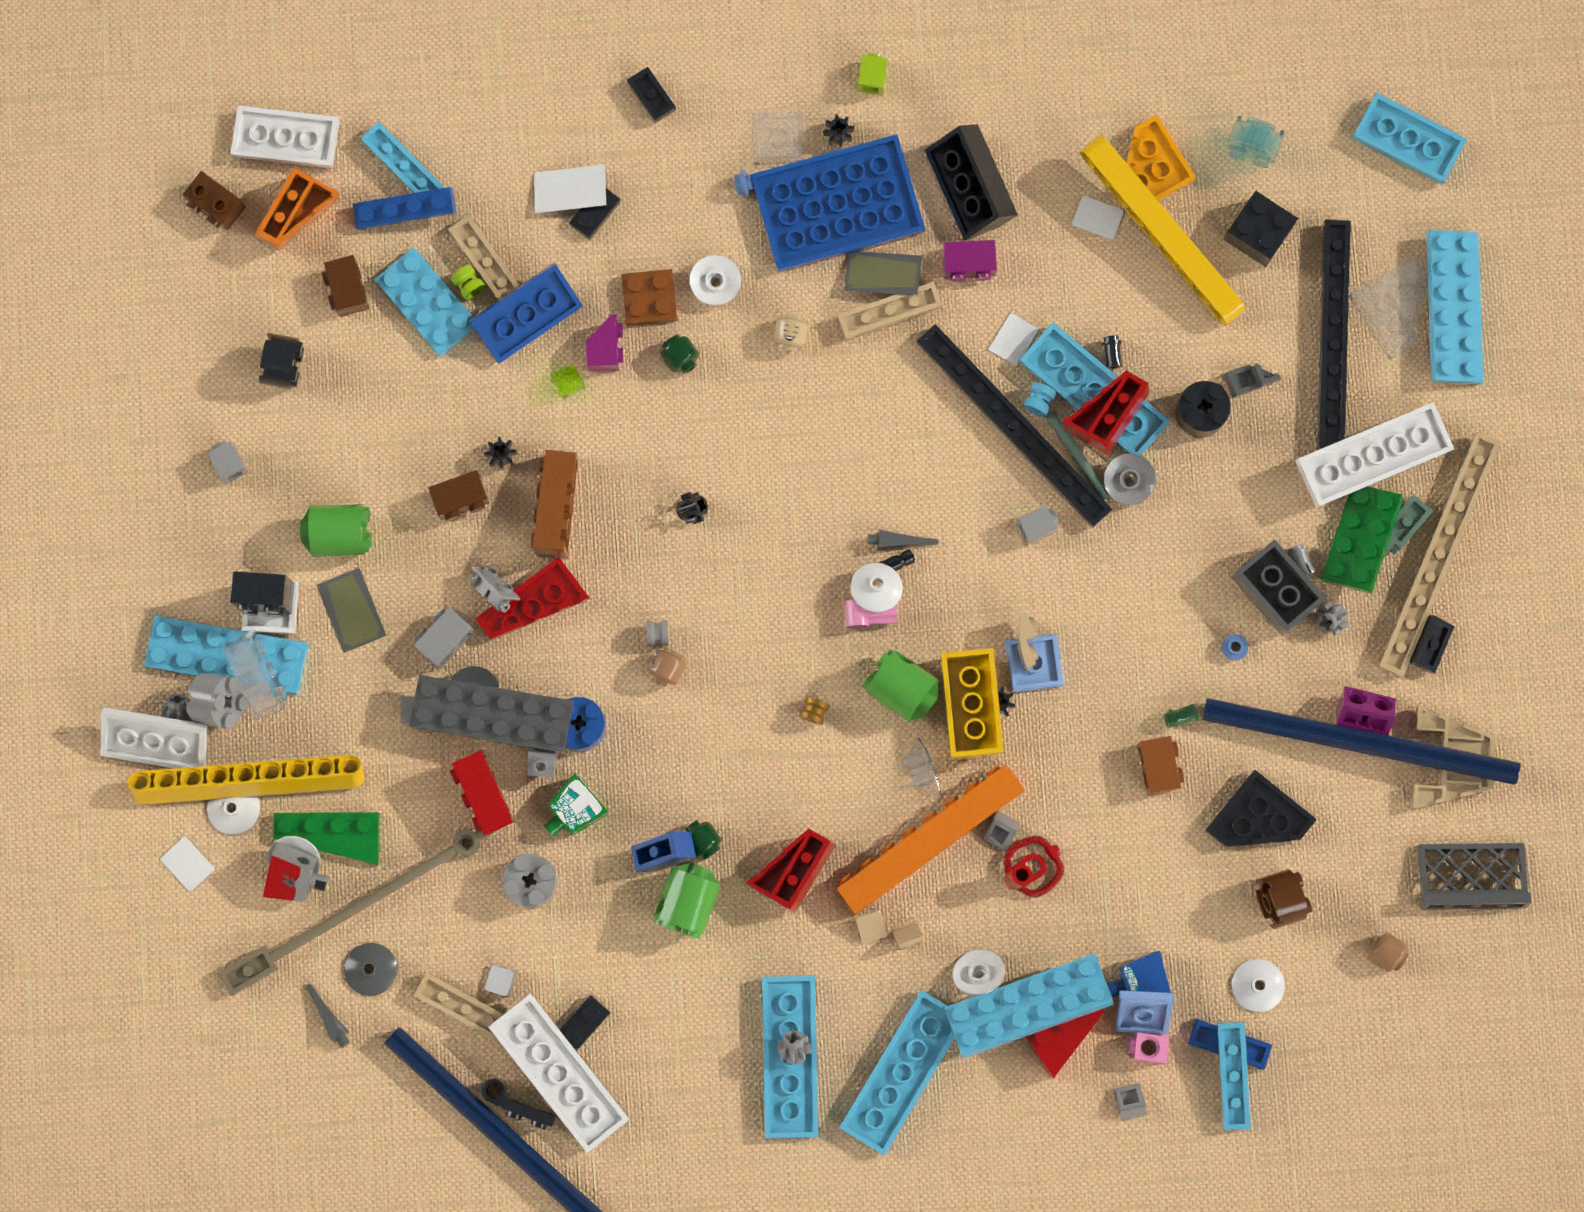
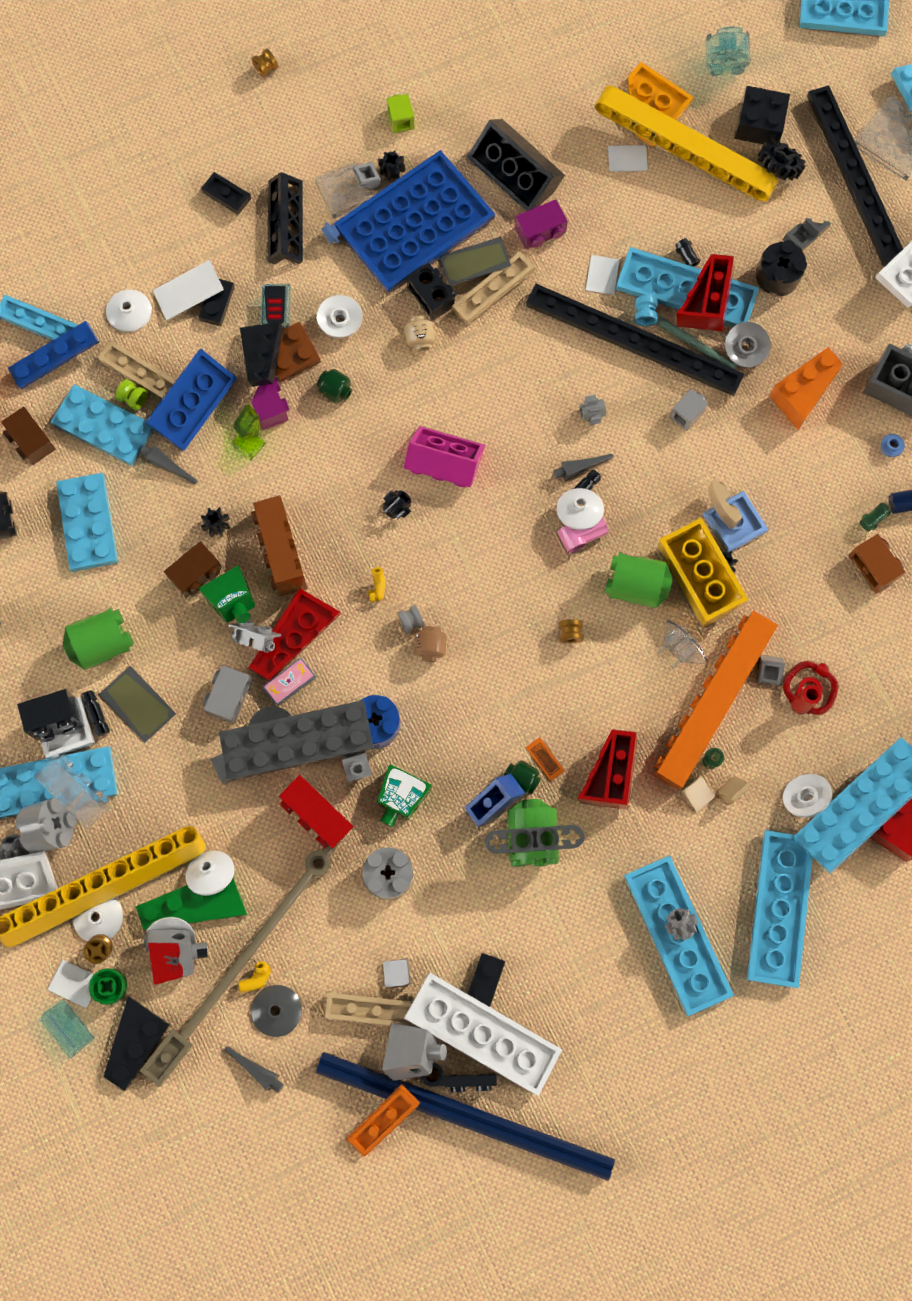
camera: 25 degrees left, 5 degrees down
(164, 904) = (66, 1028): none -> clear light blue slope
(218, 844) = (94, 953): none -> pearl gold wheel
(218, 880) = (108, 986): none -> green wheel
(223, 944) = (134, 1042): none -> black wing
(306, 603) = (95, 713): none -> black axle
(361, 817) = (214, 879): none -> white dish
(364, 932) = (258, 978): none -> yellow arm
(372, 400) = (87, 522): none -> medium azure plate
(430, 1115) = (383, 1120): none -> orange tile
(470, 363) = (158, 458): none -> dark grey piece
(481, 1062) = (411, 1052): none -> light grey torso
(485, 537) = (229, 596): none -> green torso
(502, 197) = (133, 318): none -> white dish
(510, 648) = (289, 682): none -> bright pink tile
(573, 361) = (247, 423): none -> clear neon green slope
(617, 289) = (261, 351): none -> black wing
(641, 583) = (379, 584): none -> yellow arm
(653, 243) = (275, 304): none -> slope
(683, 904) = (534, 839): none -> dark grey beam
(698, 144) = (280, 216): none -> black fence
(734, 829) = (545, 759): none -> sticker
(762, 475) = (444, 456): none -> dark pink slope
(806, 133) = (367, 175): none -> light grey slope
(816, 290) = (427, 292): none -> black brick
(900, 890) = (718, 756): none -> clear green pin
(936, 486) = (592, 409): none -> light grey gear
(1171, 548) = (804, 387): none -> orange wedge
(1258, 288) = (781, 160): none -> black gear

